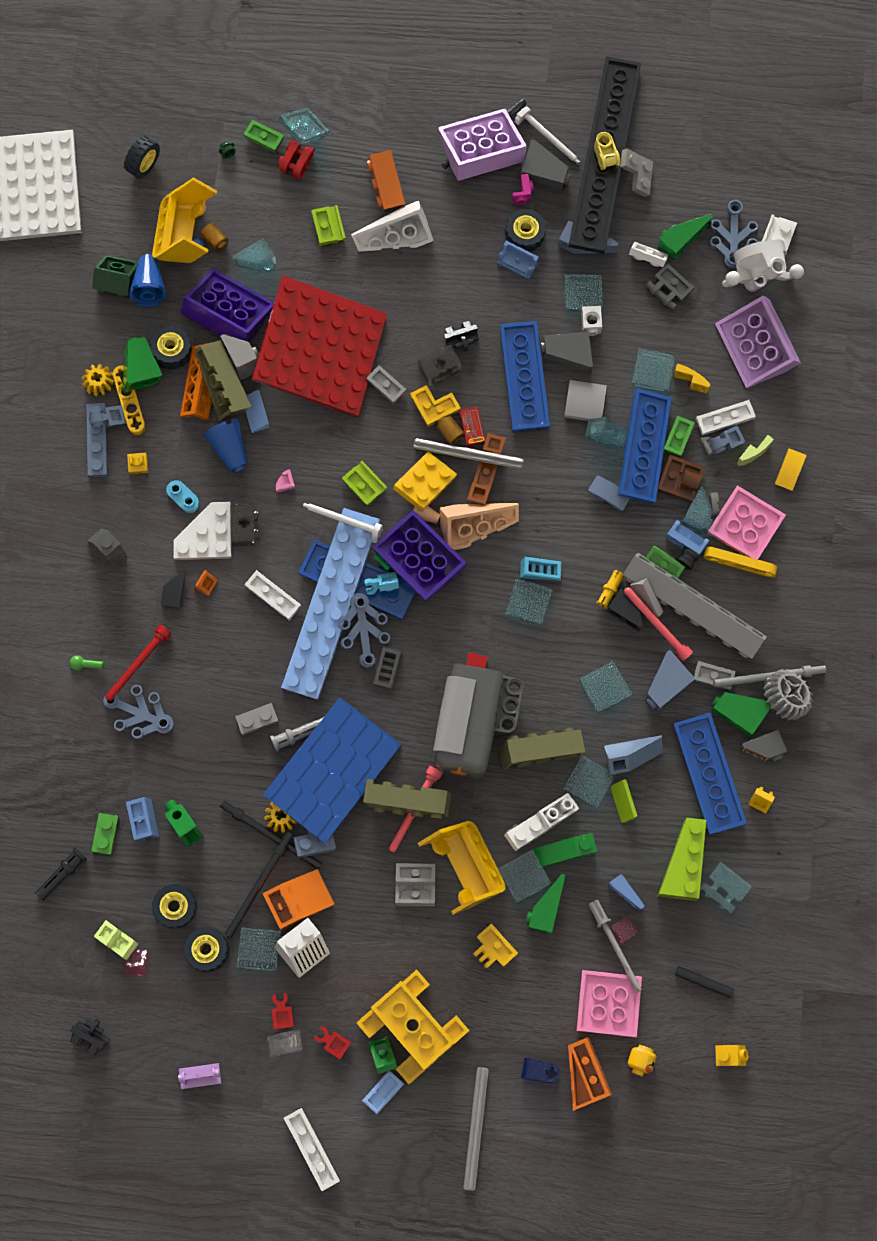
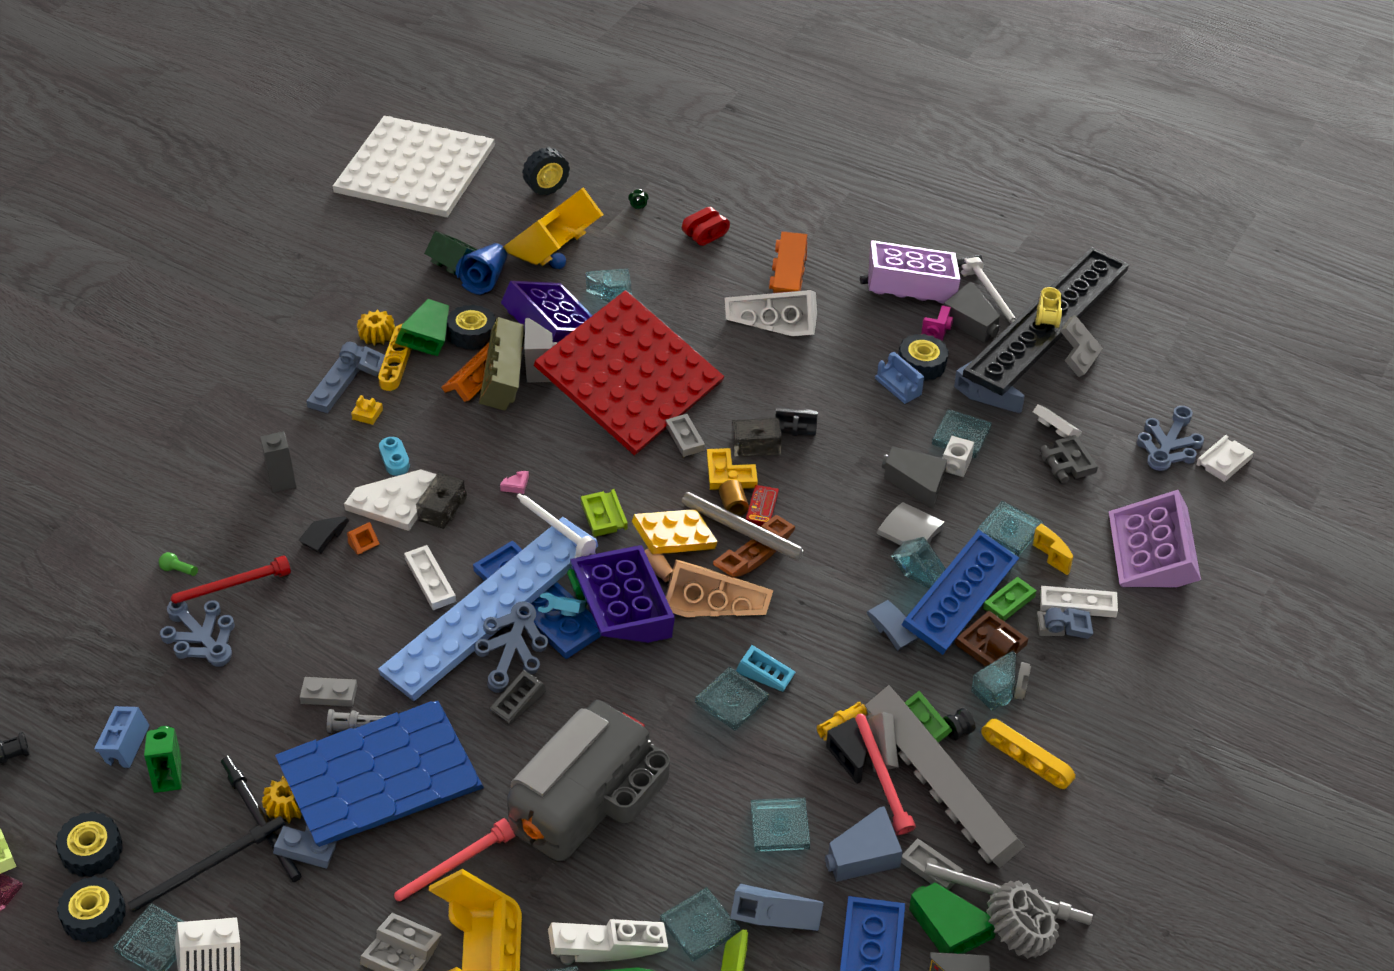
camera: 25 degrees right, 30 degrees down
(105, 834) = (69, 738): bright green plate -> none
(214, 237) = (579, 257): pearl gold brick -> none
(228, 444) = (474, 419): blue cone -> none
(256, 414) = (525, 411): light blue slope -> none
(263, 136) = (682, 199): bright green plate -> none
(298, 899) = (242, 892): orange slope -> none
(303, 125) = (728, 201): clear light blue plate -> none
(328, 225) = (705, 286): lime plate -> none
(407, 800) = (447, 835): olive wedge -> none
(524, 376) = (849, 482): blue plate -> none
(540, 748) = (655, 853): olive wedge -> none
(682, 235) = (1106, 418): green slope -> none
(683, 537) = (959, 696): medium blue hinge -> none
(746, 523) = (1055, 716): bright pink plate -> none
(752, 453) = (1095, 647): yellowish green slope -> none
(761, 263) = (1187, 462): white piece -> none
(790, 469) = (1139, 681): yellow slope -> none

